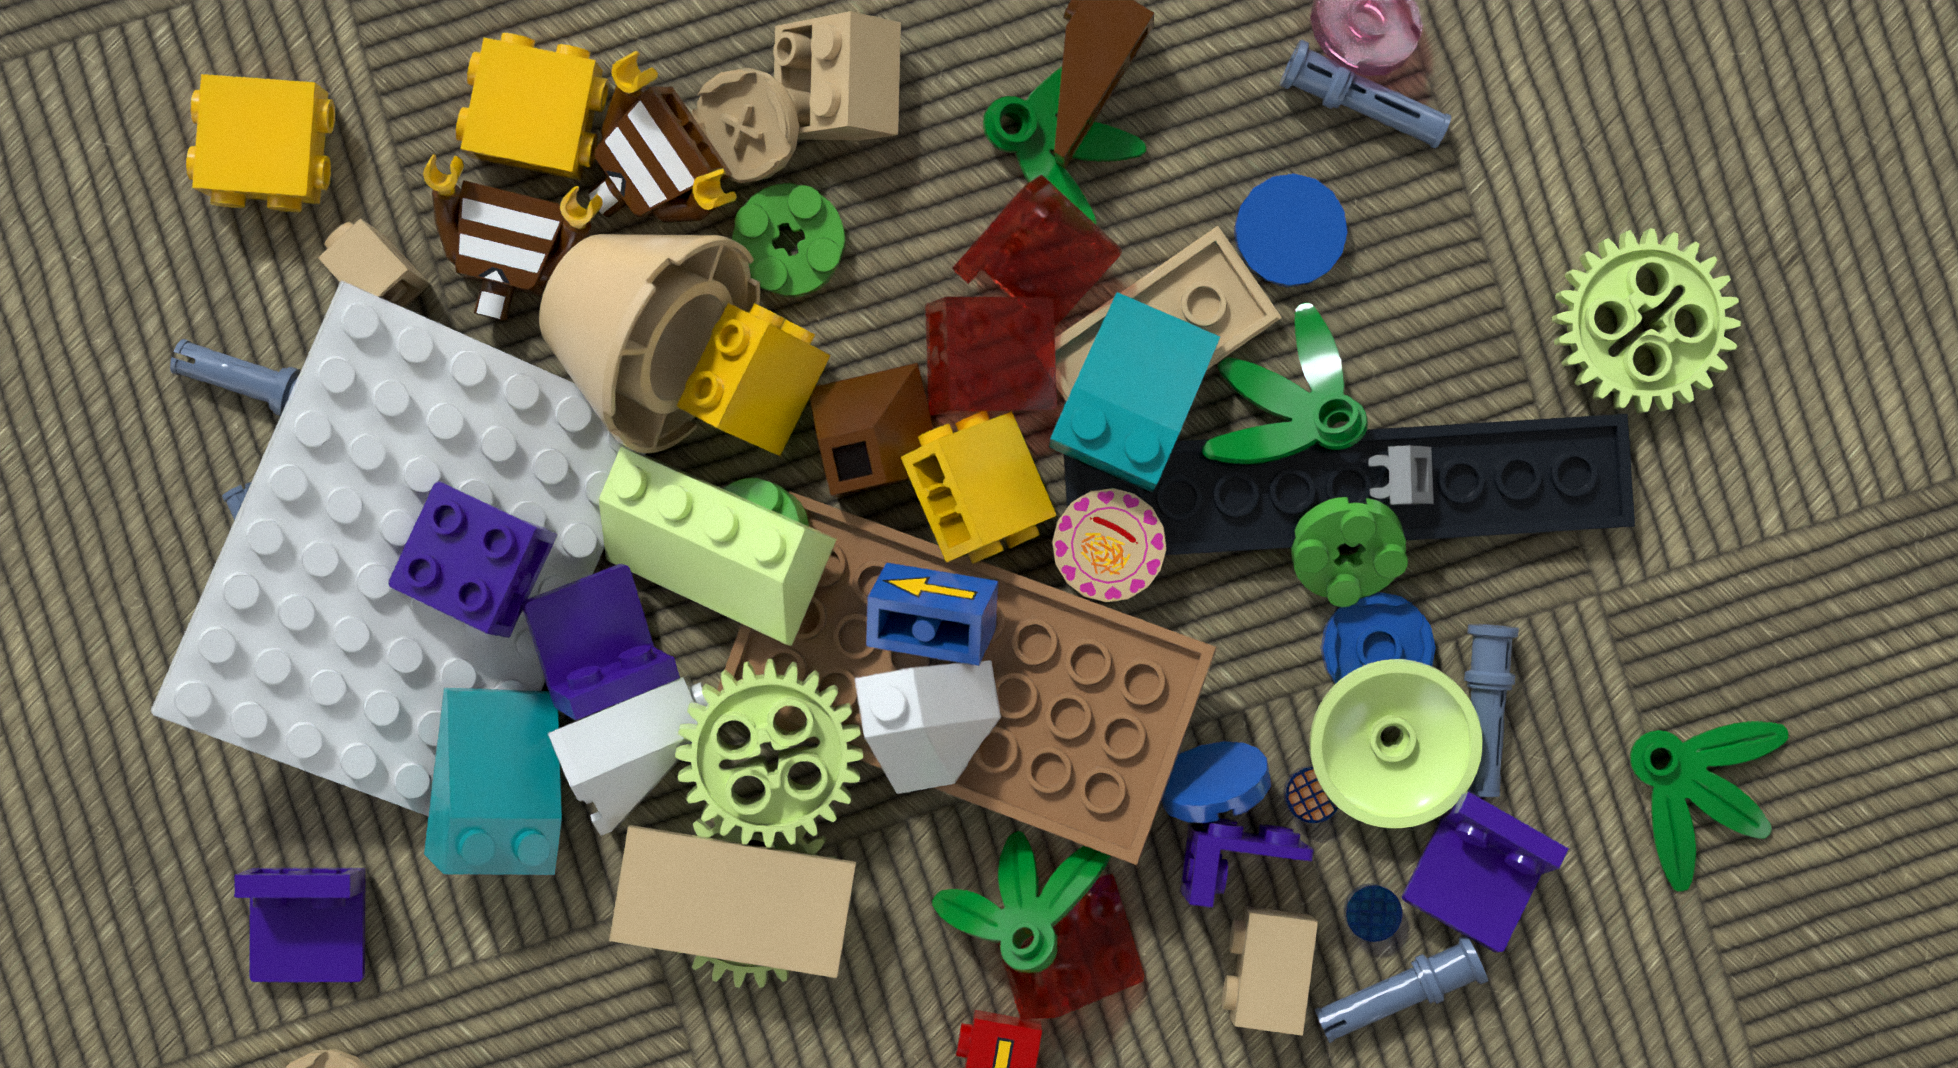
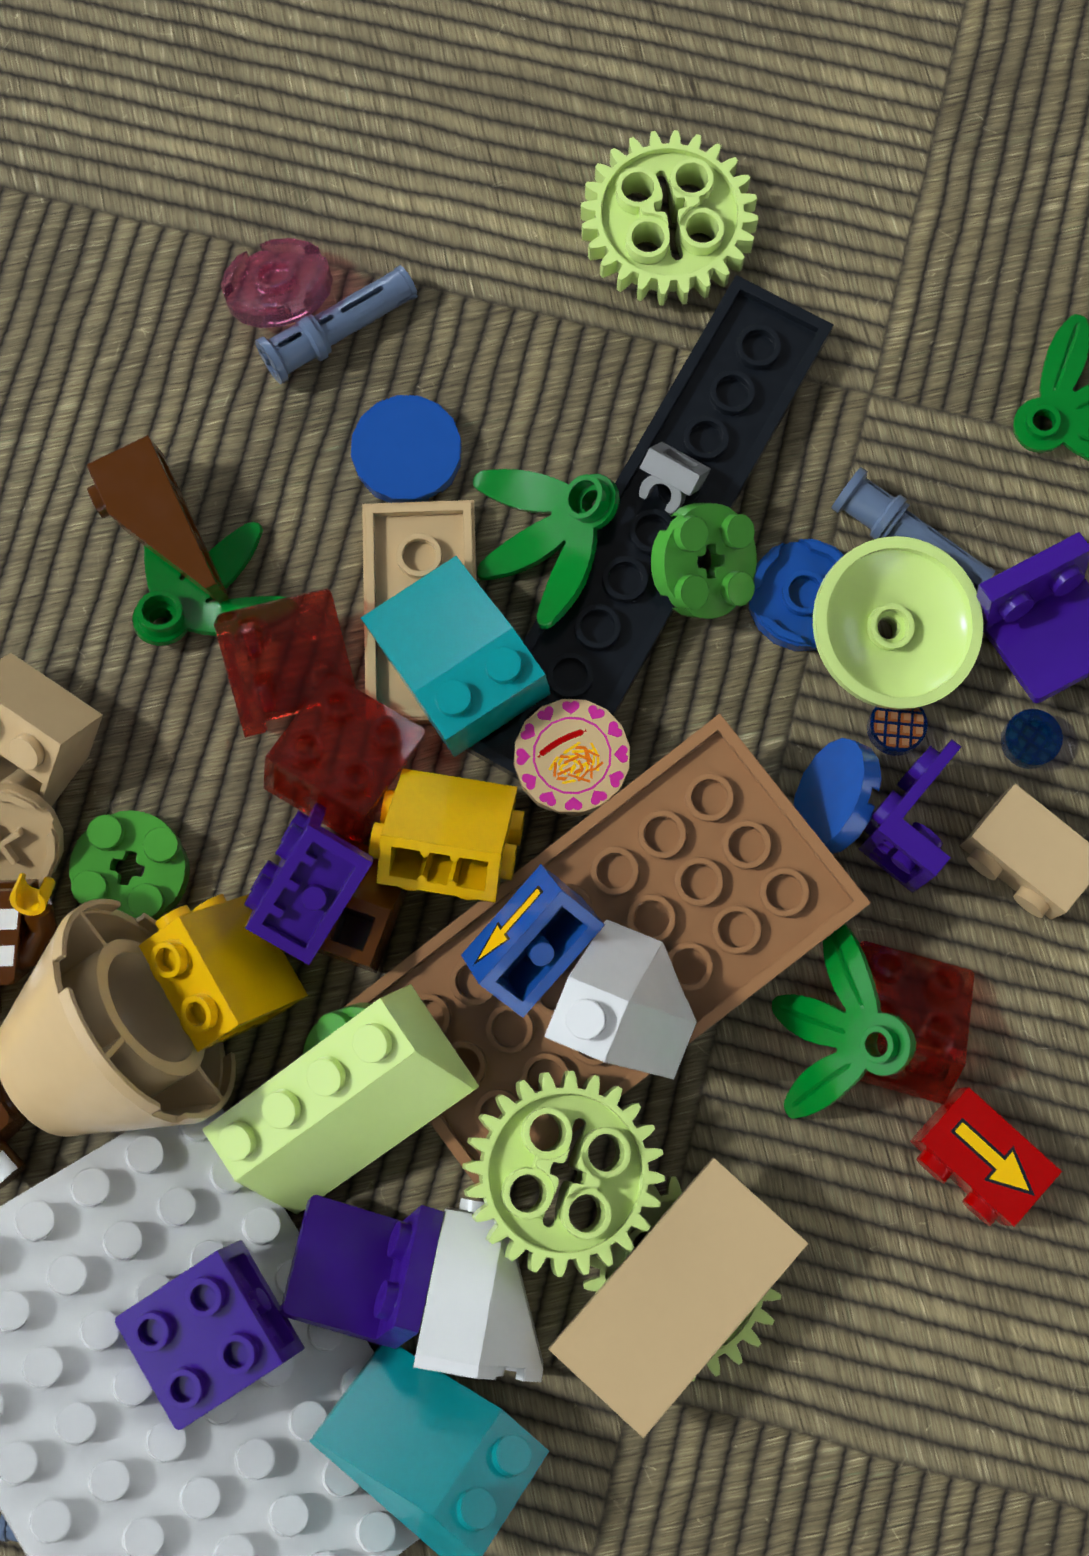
camera: 50 degrees left, 10 degrees down
(861, 401) = (308, 889): none -> dark purple bracket

